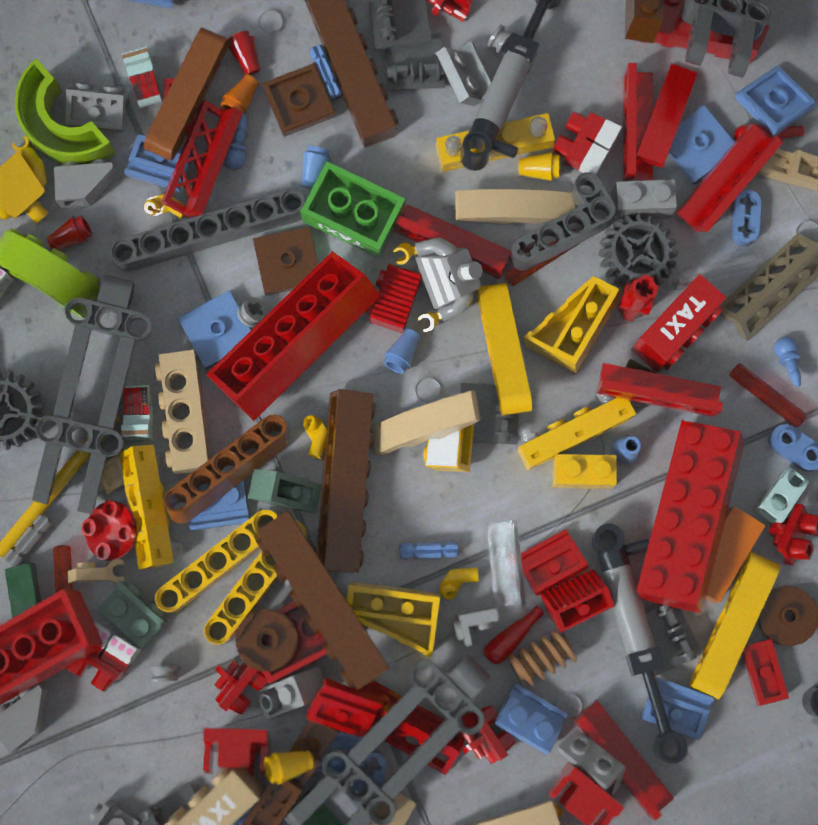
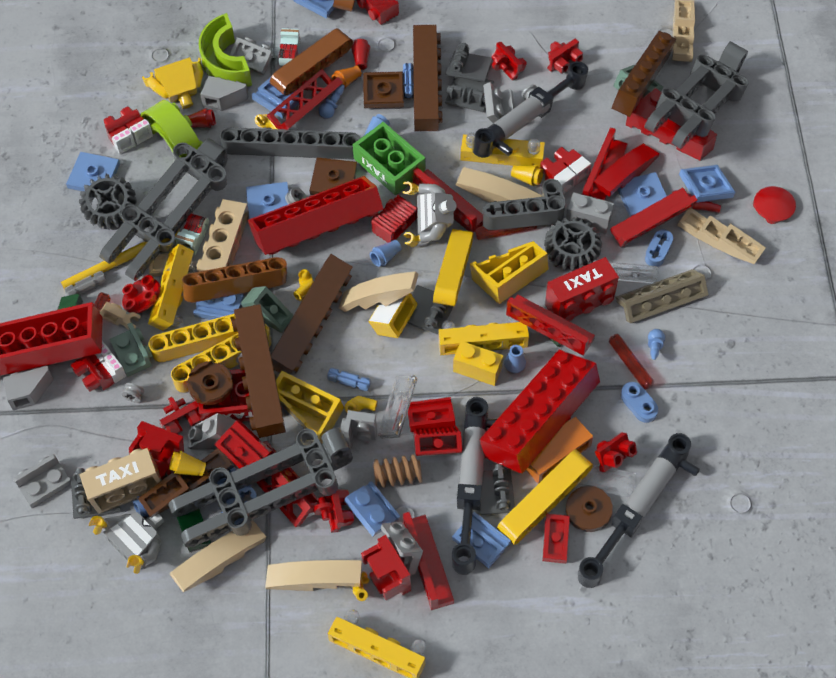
camera: 25 degrees right, 20 degrees down
(507, 640) = (367, 456): red piece -> none
(637, 298) = (557, 259): red piece -> none
(781, 496) = (613, 425): light aqua leg -> none

